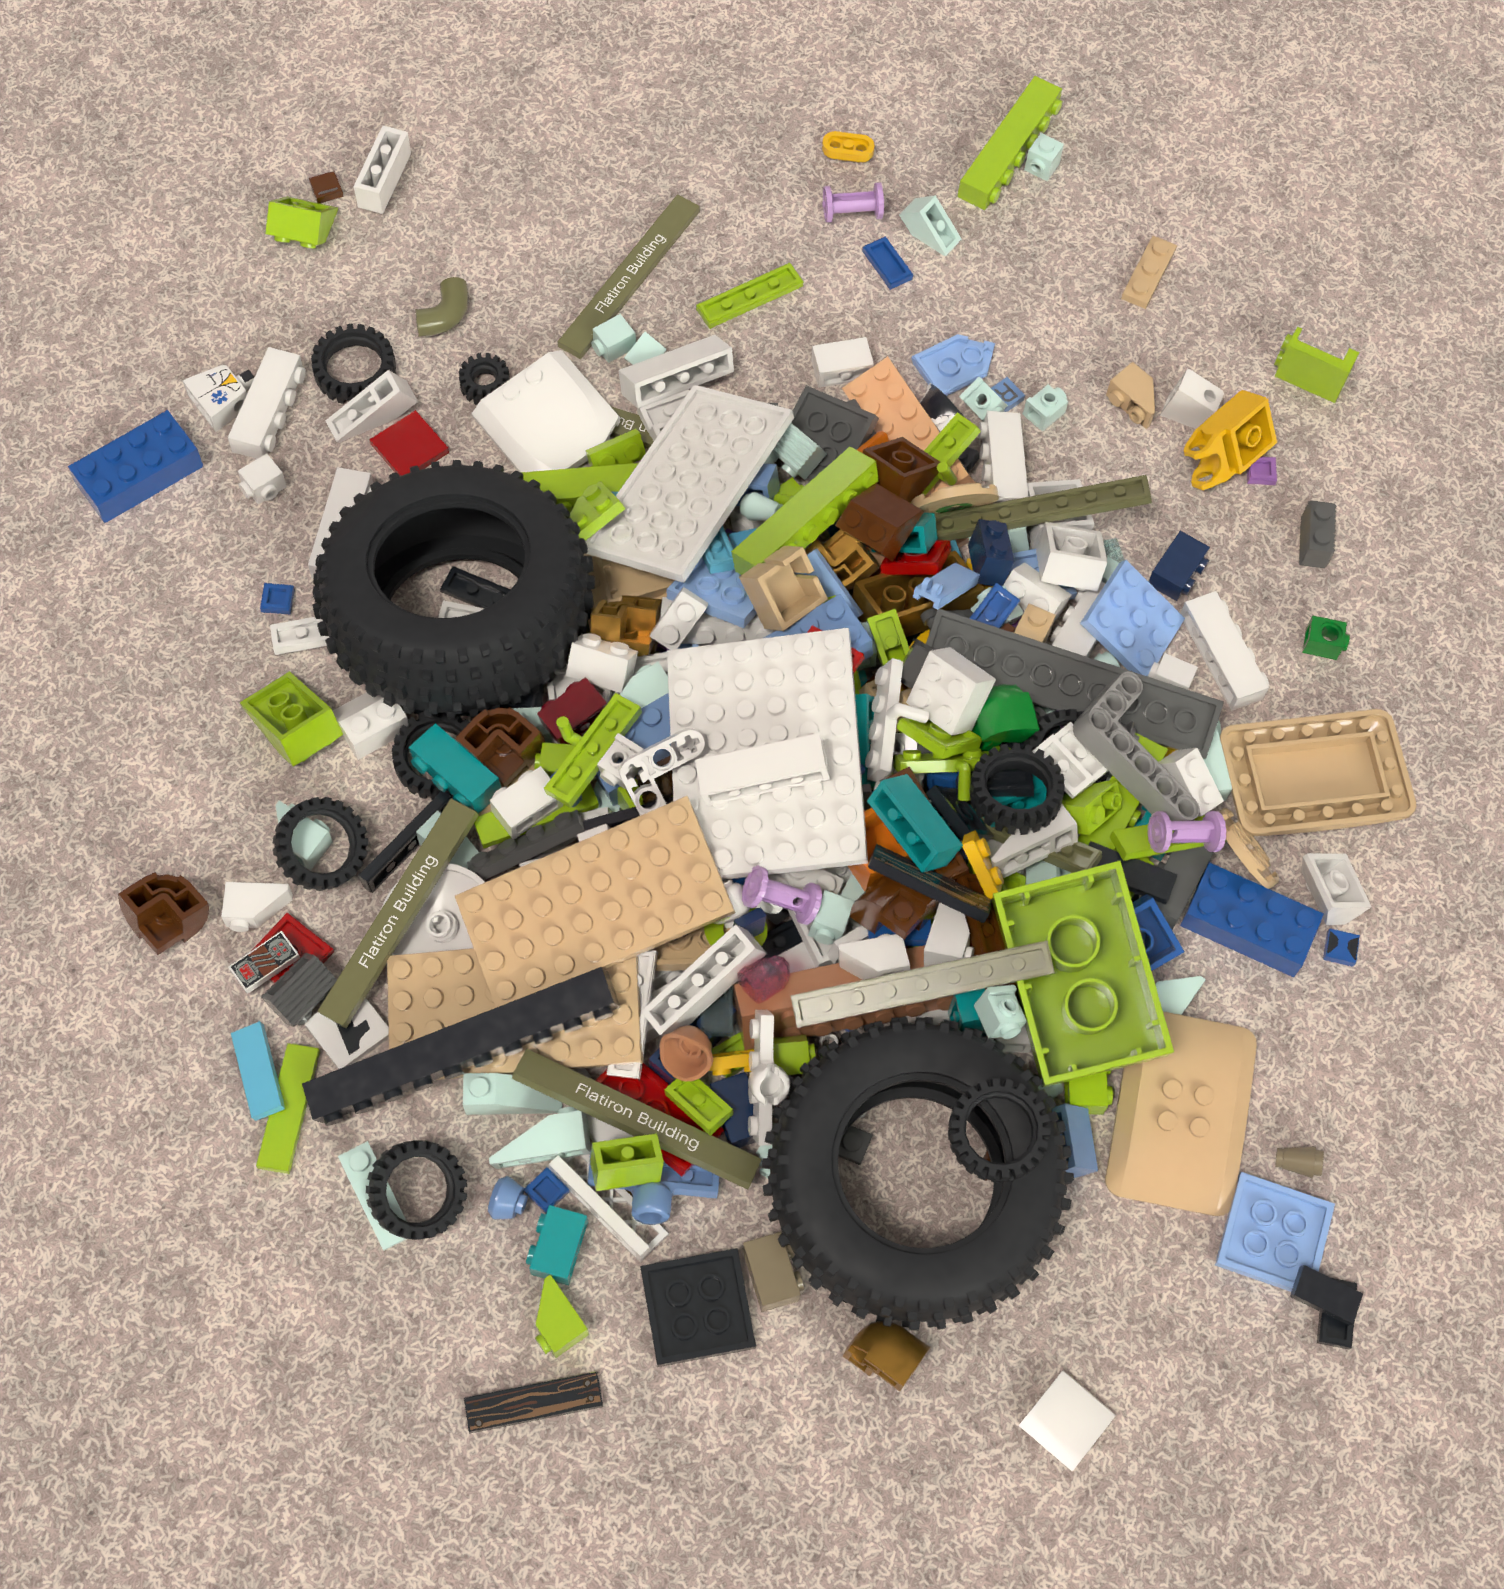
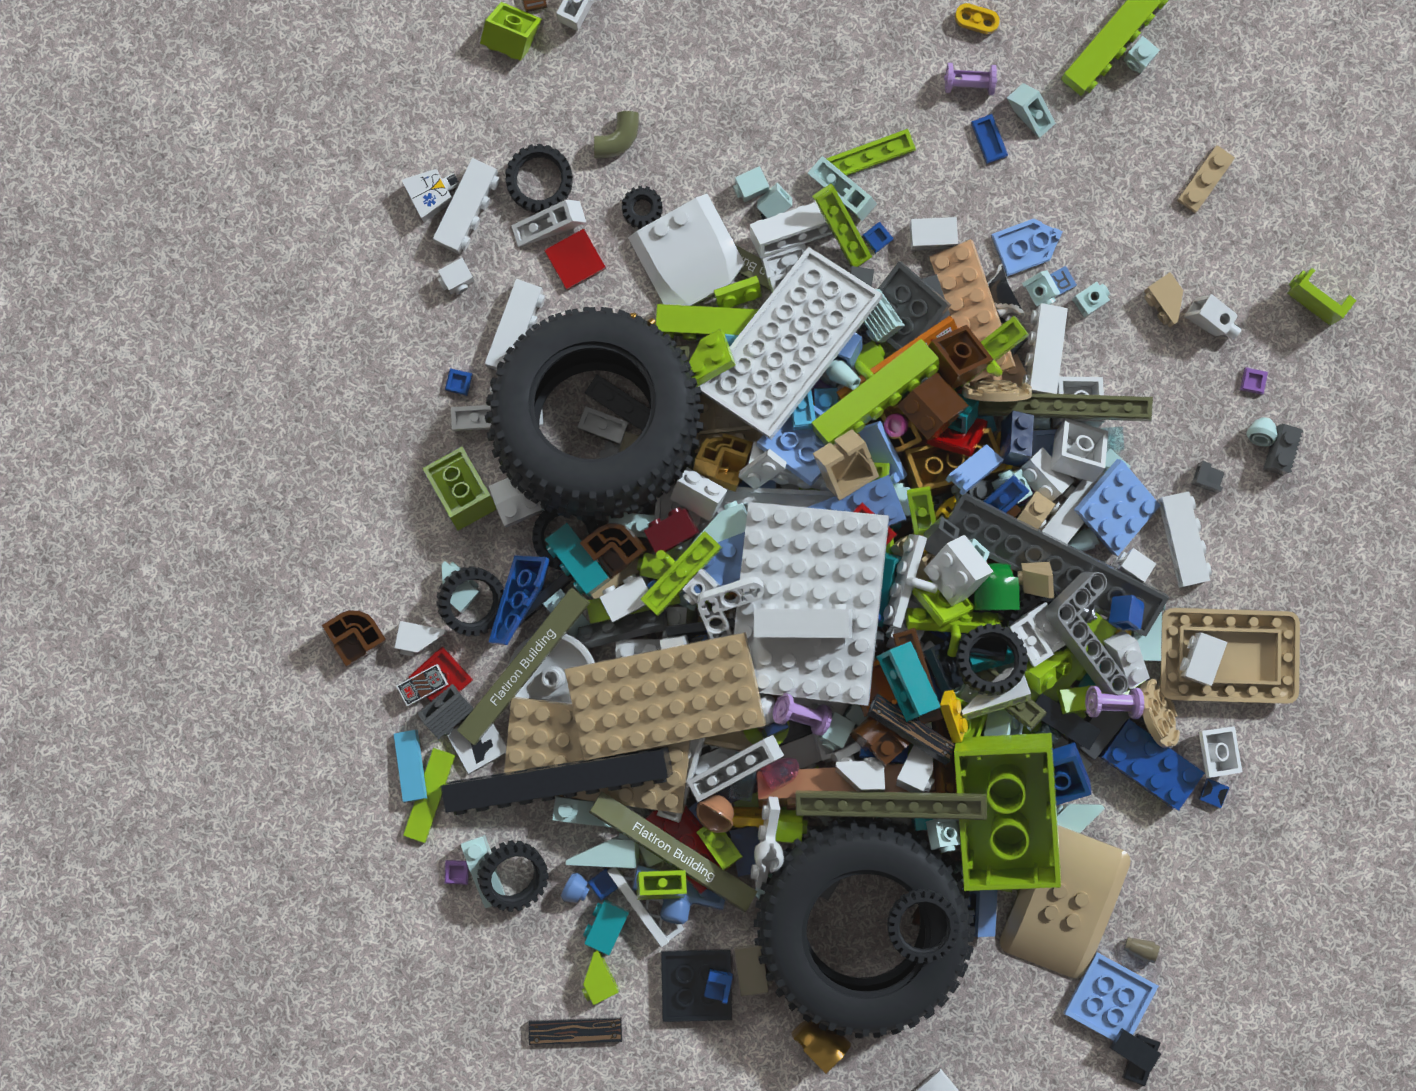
camera: 10 degrees right, 20 degrees up
(136, 466) = (358, 251): blue brick -> none
(337, 1206) = (456, 872): none -> medium lavender tile
(386, 816) = (520, 591): none -> blue wedge
(629, 275) = (773, 121): olive tile -> none
(728, 1296) = (718, 985): none -> blue panel
(729, 355) = (842, 226): none -> lime tile
(738, 331) = (852, 196): none -> light aqua slope
(775, 377) = (877, 237): none -> blue tile
(838, 551) = (896, 425): none -> dark pink tile
(1054, 694) = (1037, 579): none -> tan slope
(1175, 725) = (1126, 613): none -> blue panel
(1179, 565) = (1166, 460): dark blue brick -> none
(1231, 439) = (1233, 358): yellow brick -> none
(1234, 581) = (1208, 477): none -> dark grey panel
(1284, 773) = (1202, 658): none -> white brick
(1287, 520) = (1262, 432): none -> light aqua cone
(1323, 627) = (1256, 540): green brick -> none

